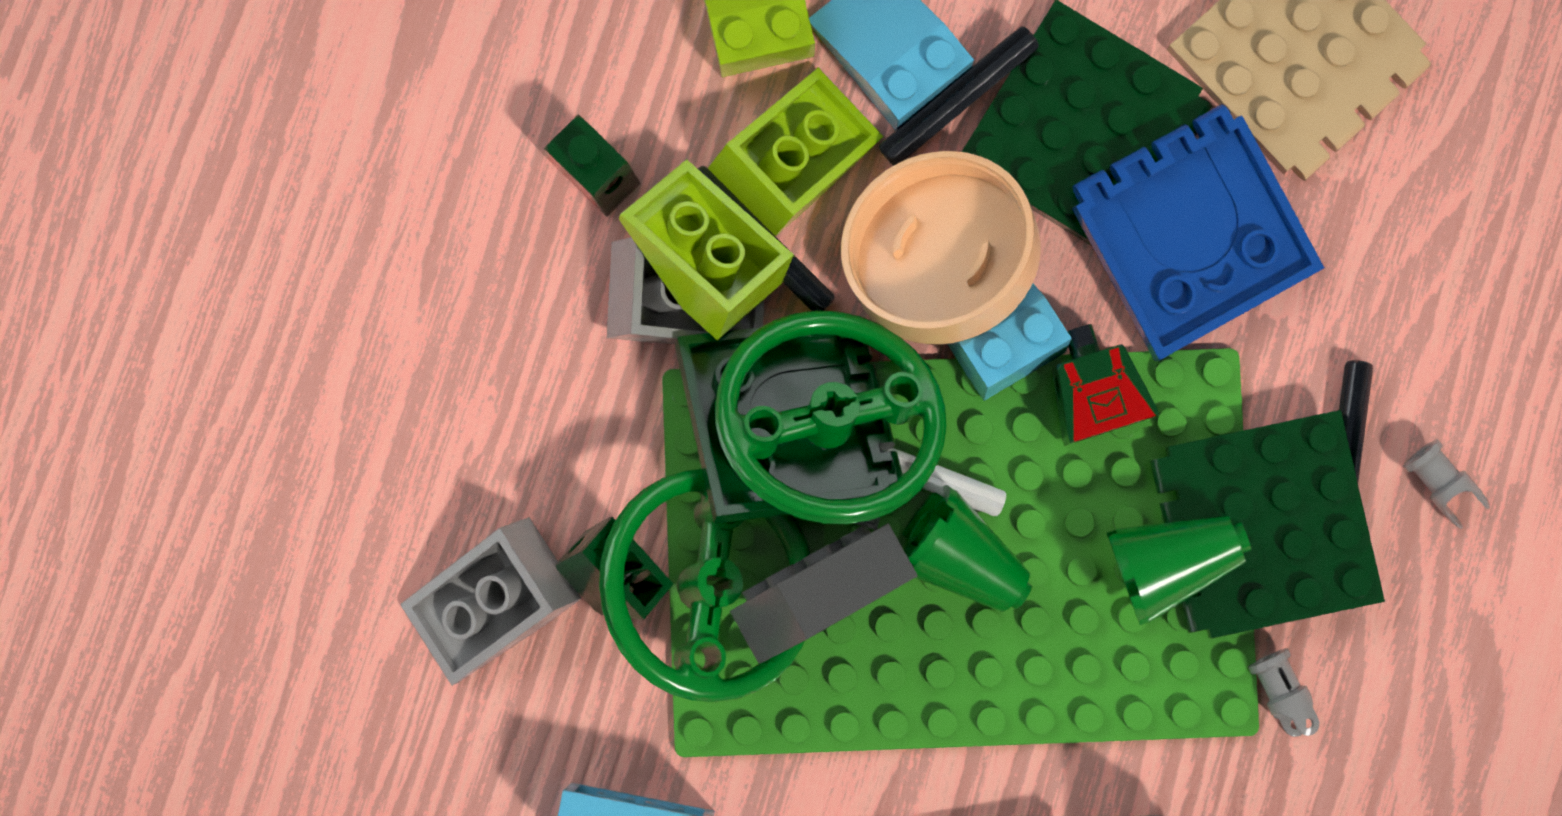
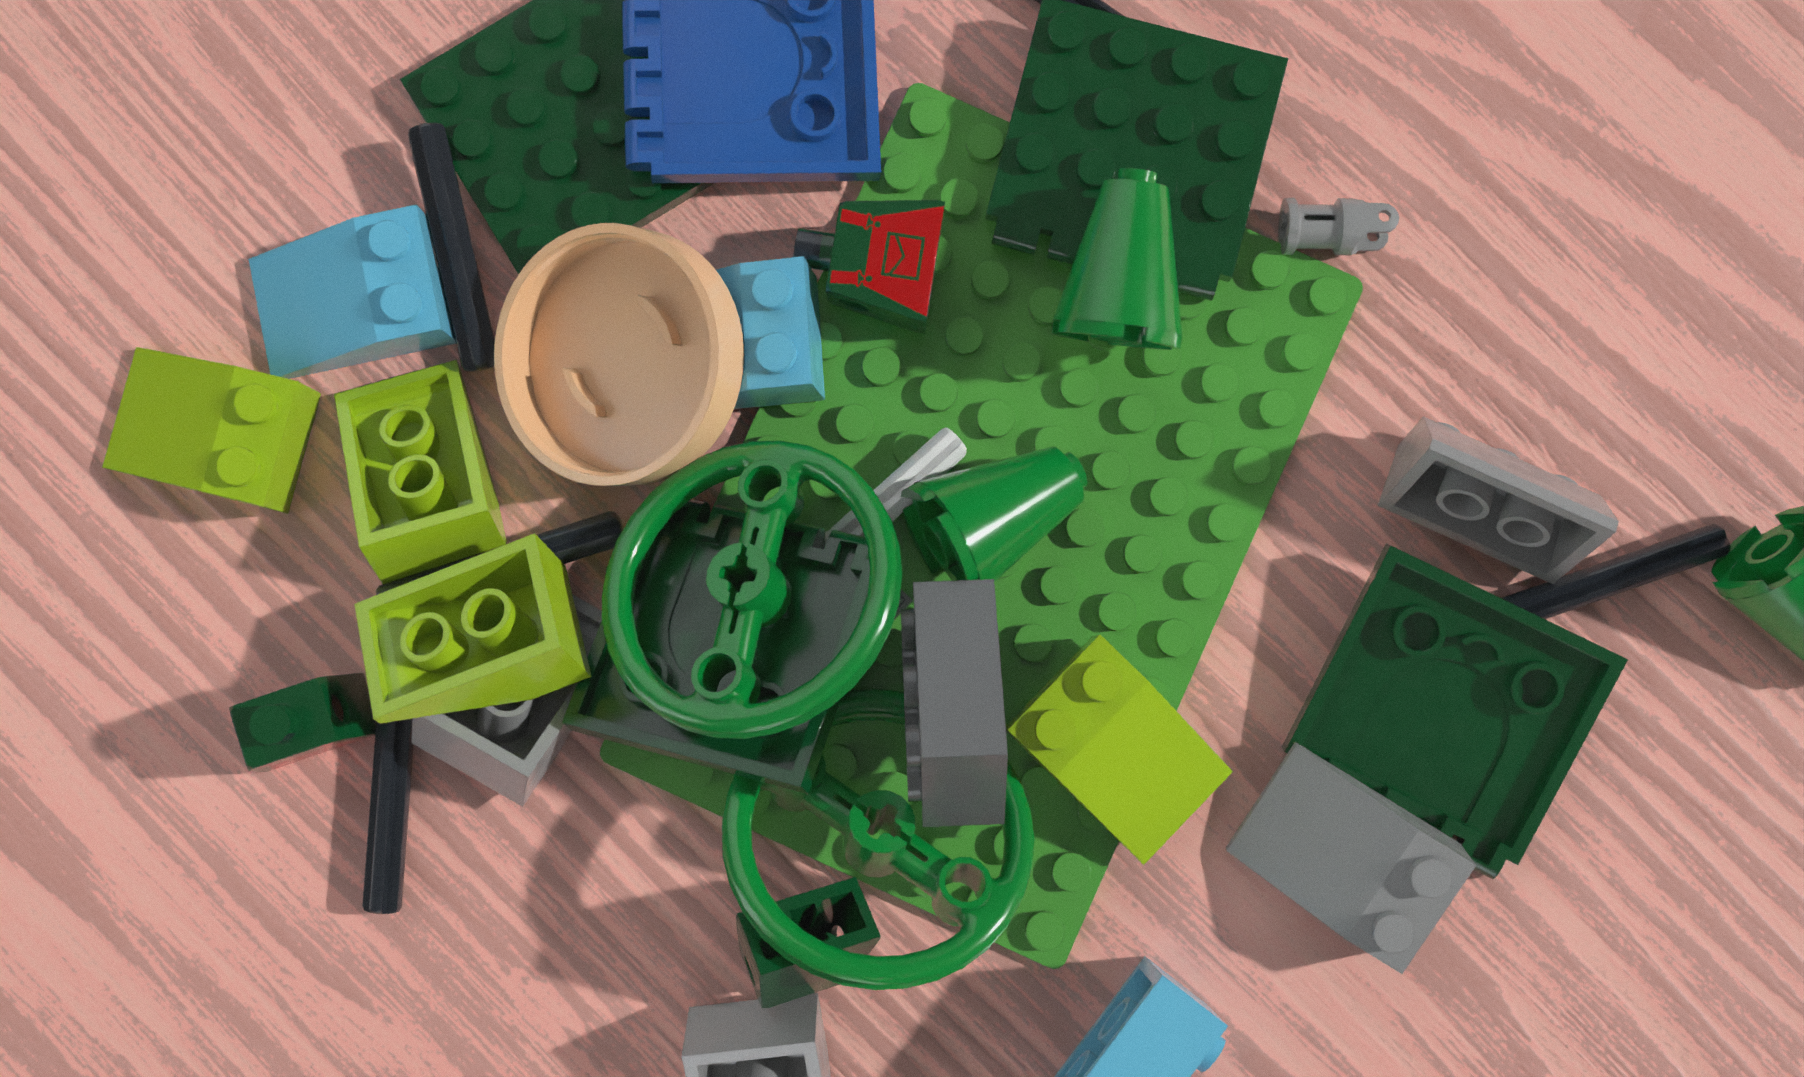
camera: 65 degrees left, 0 degrees up
(556, 250) = (388, 817): none -> black axle
(846, 721) = (1119, 748): none -> lime slope

